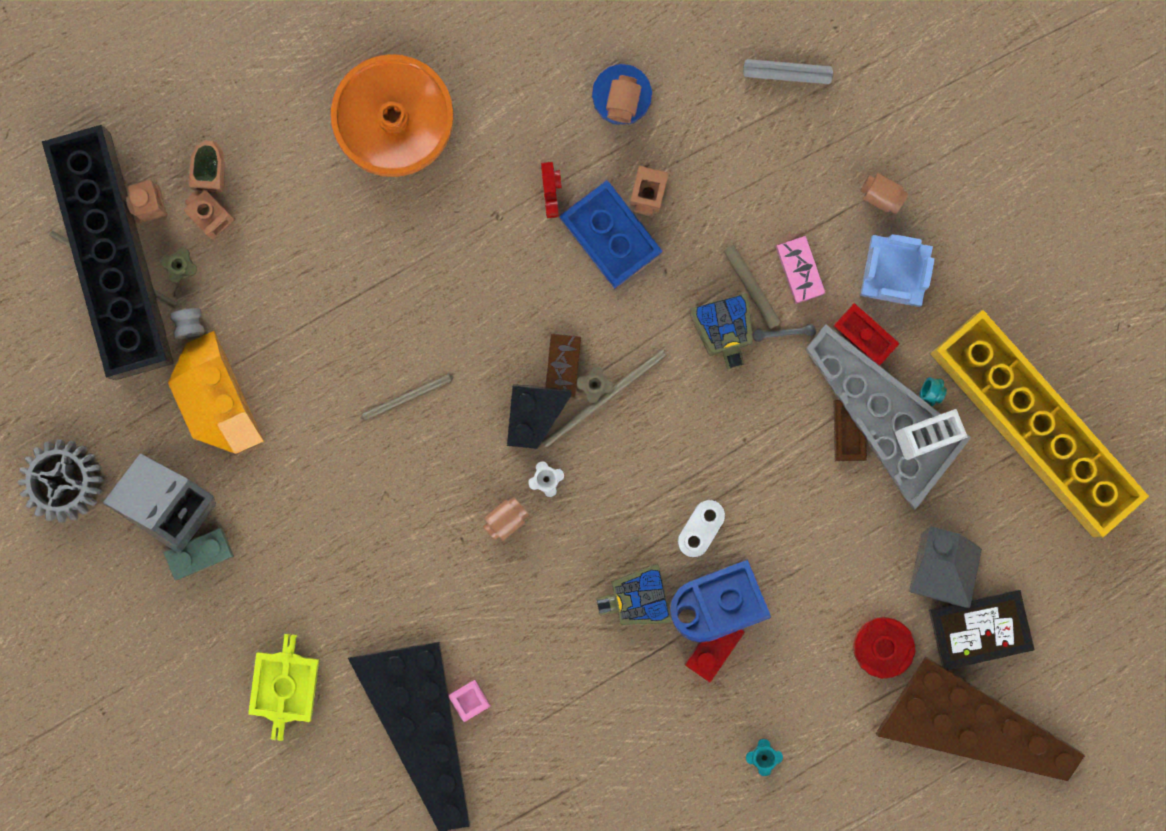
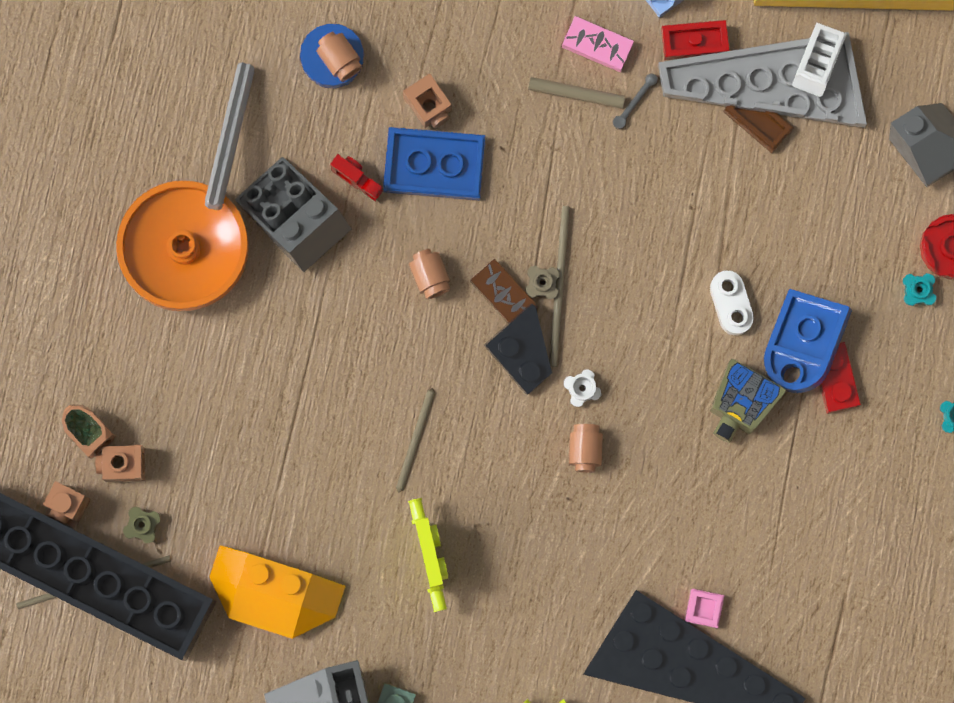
camera: 50 degrees left, 5 degrees down
(187, 323) = (195, 559): light grey wheel -> none
(325, 490) = (429, 540): none -> neon yellow plate
(485, 170) = (293, 214): none -> dark grey slope
(497, 76) = (229, 136): none -> light grey axle
(529, 302) = (430, 274): none -> nougat brick
(724, 327) = (590, 141): torso -> none
(830, 642) = (925, 282): none -> teal plate
(933, 391) = (785, 28): teal plate -> none

